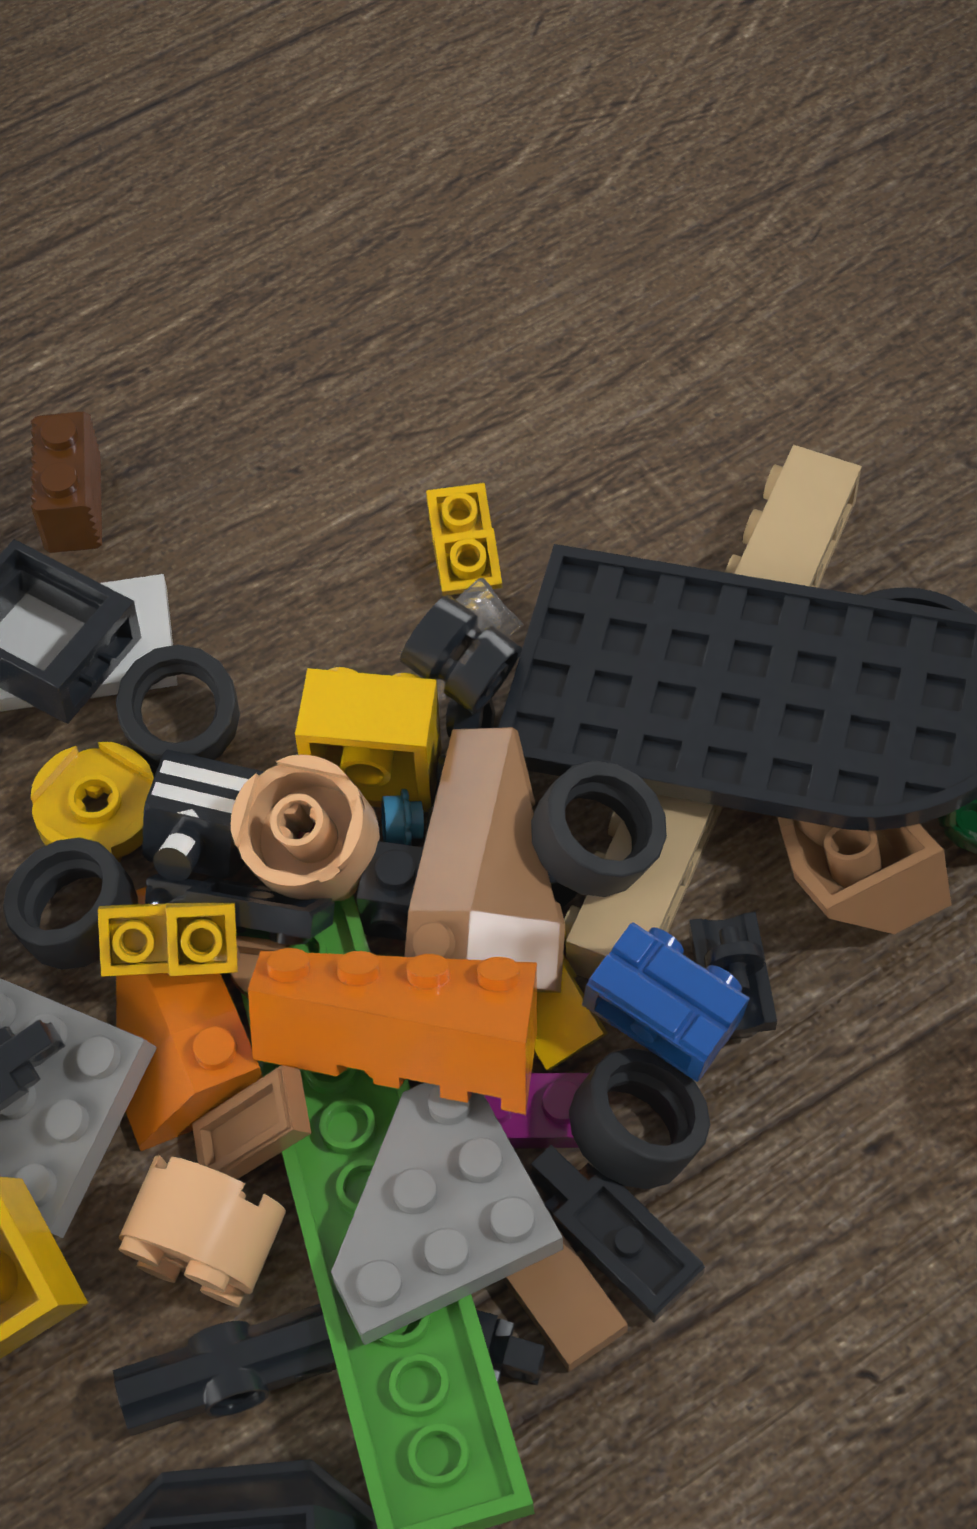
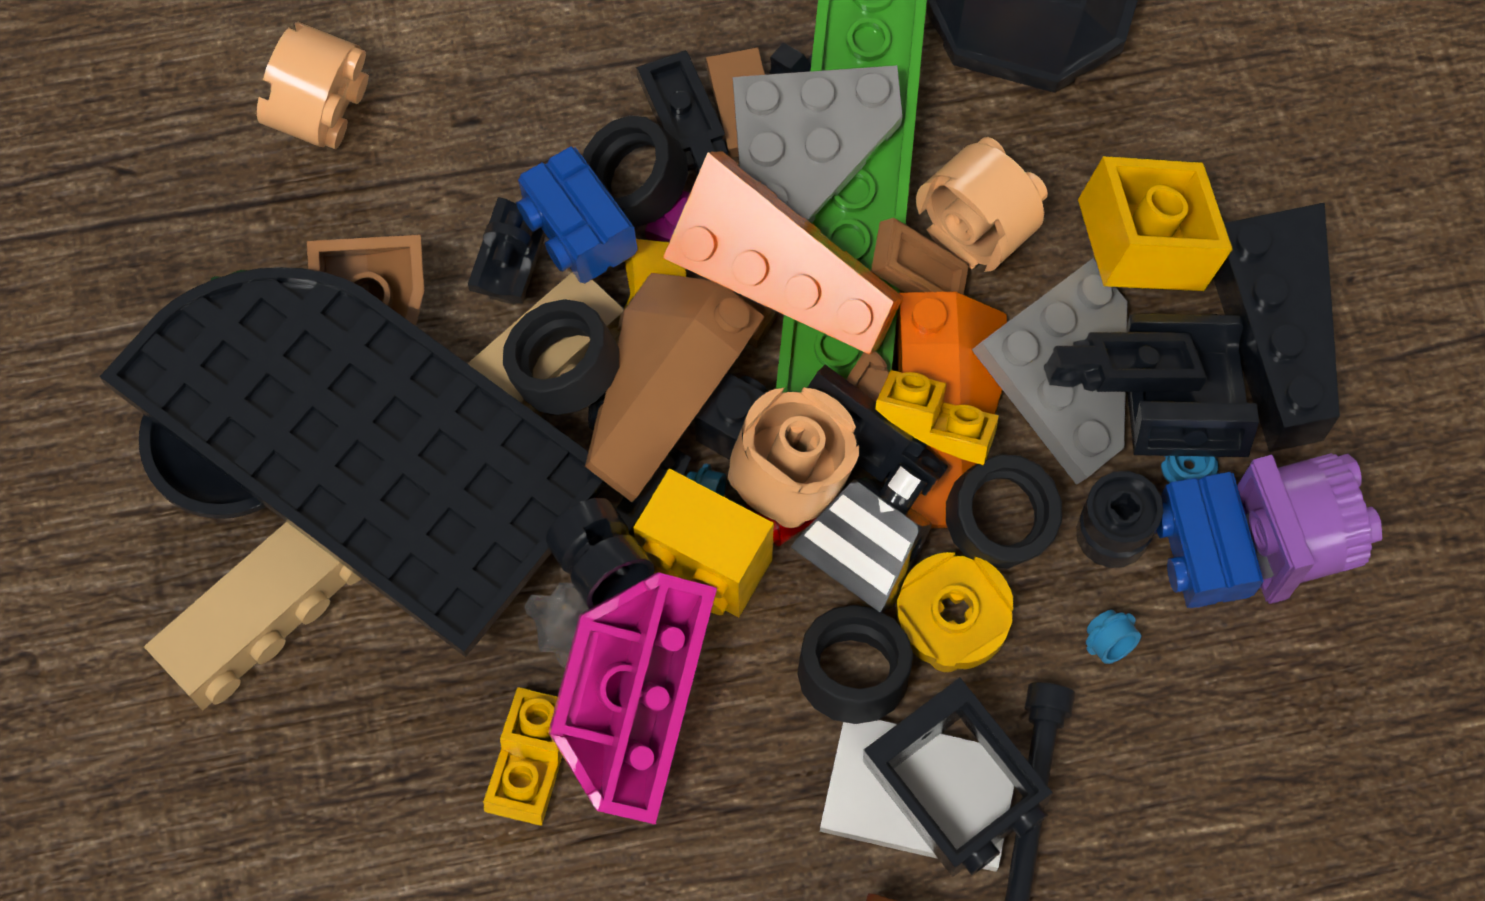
camera: 160 degrees left, 10 degrees up
(224, 1369) = (997, 116): black piece -> none
(378, 573) = (630, 691): none -> dark pink wedge

